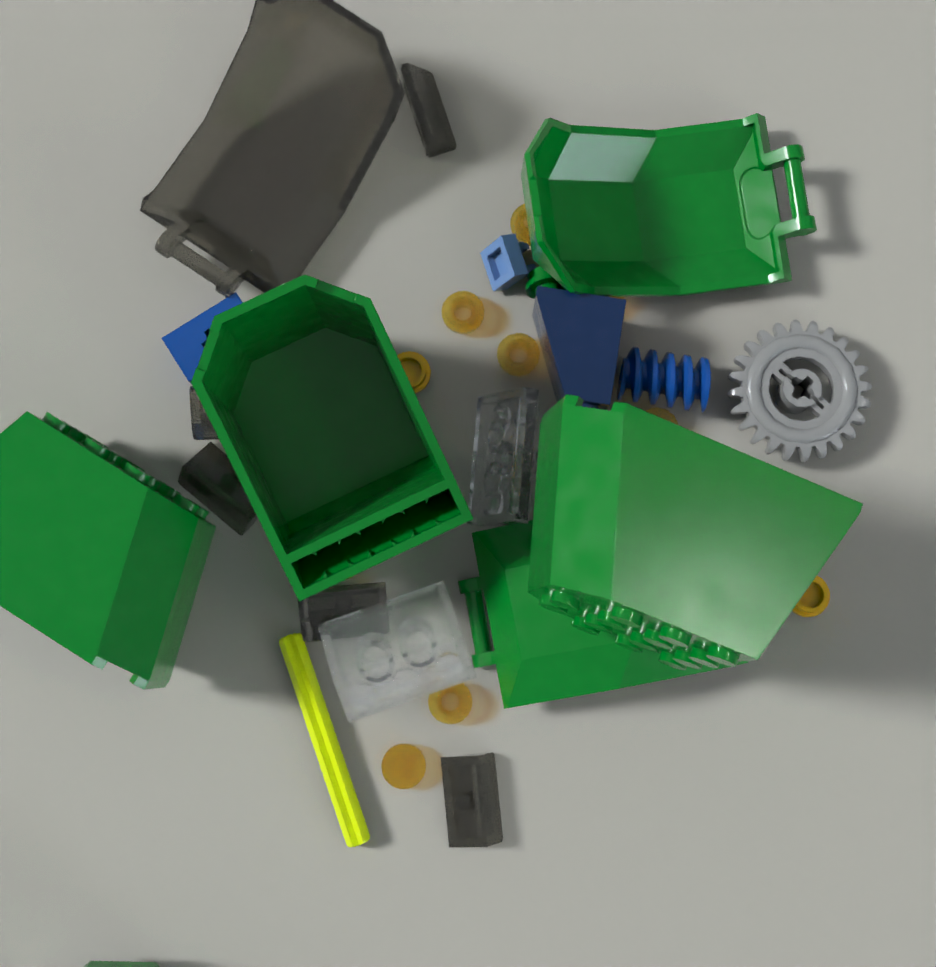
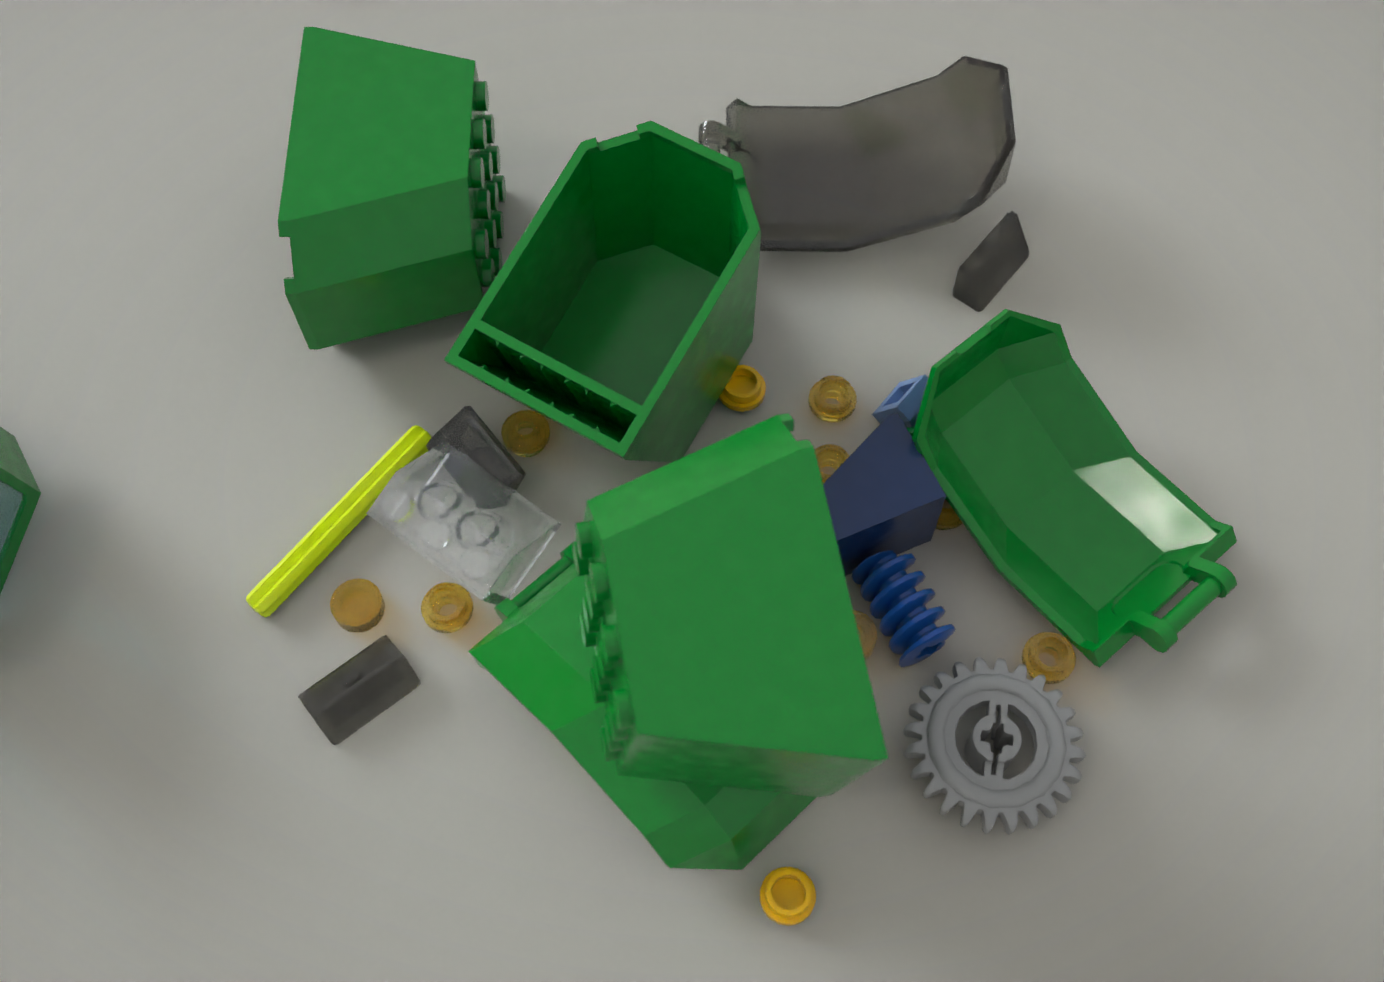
camera: 55 degrees right, 20 degrees down
(767, 298) = (1058, 648): none -> clear yellow plate

